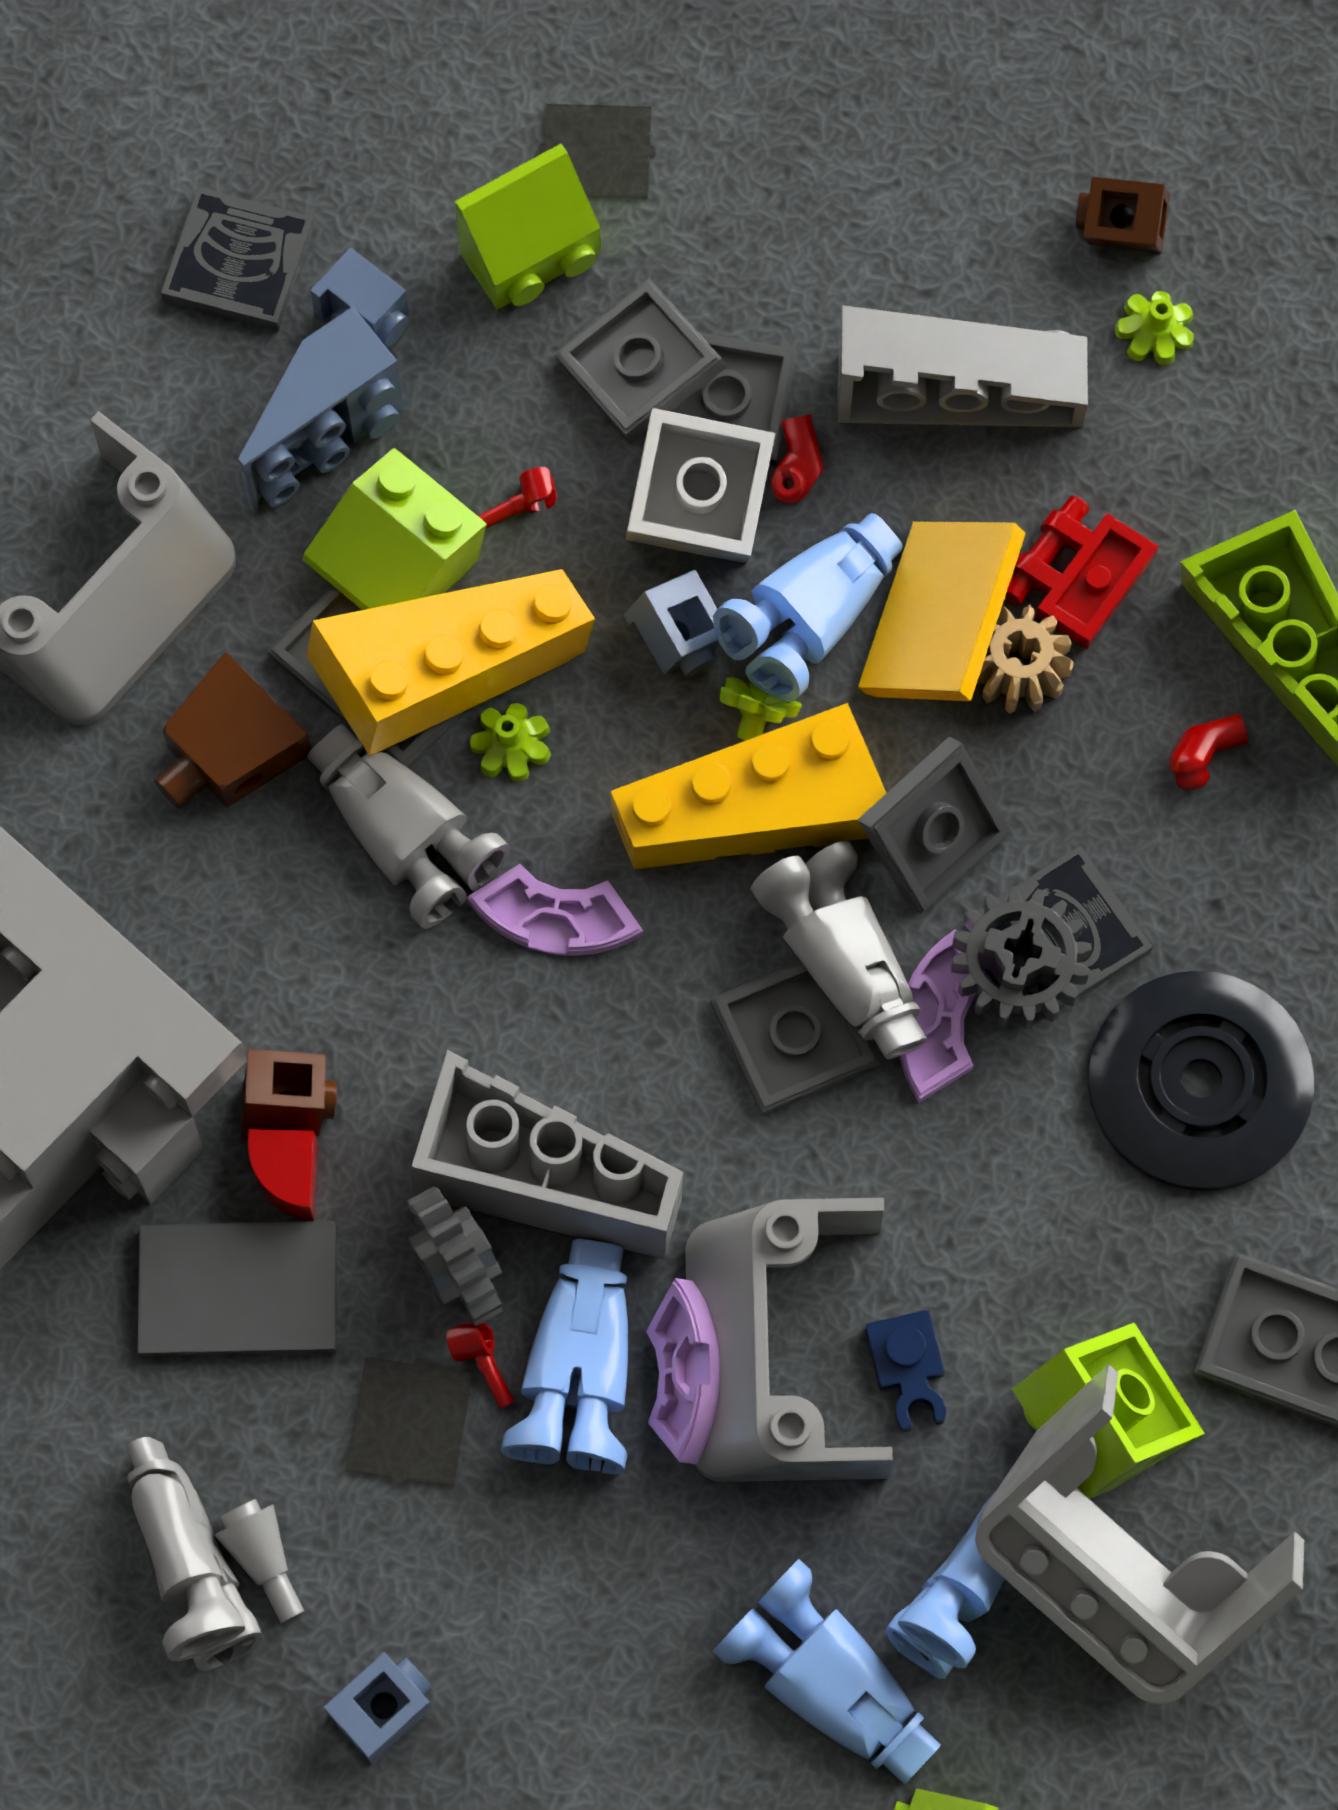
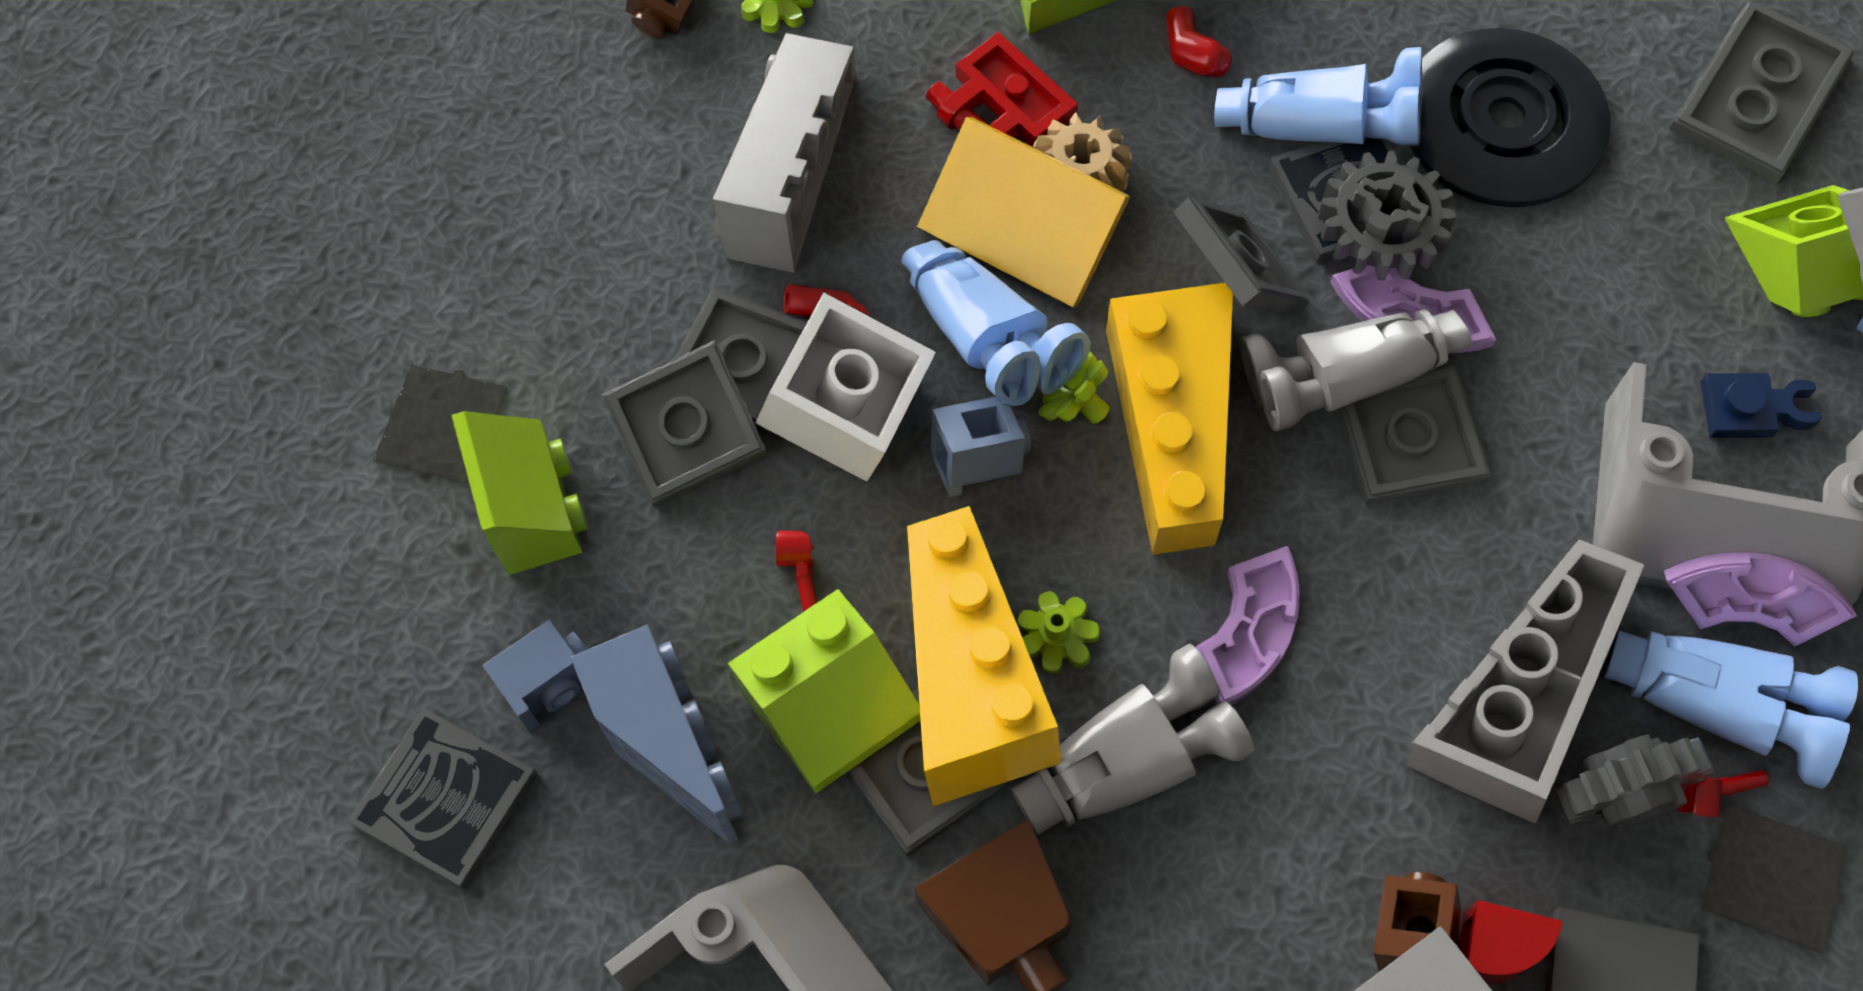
camera: 75 degrees left, 5 degrees down
(1152, 883) = (1329, 104): none -> light blue piece

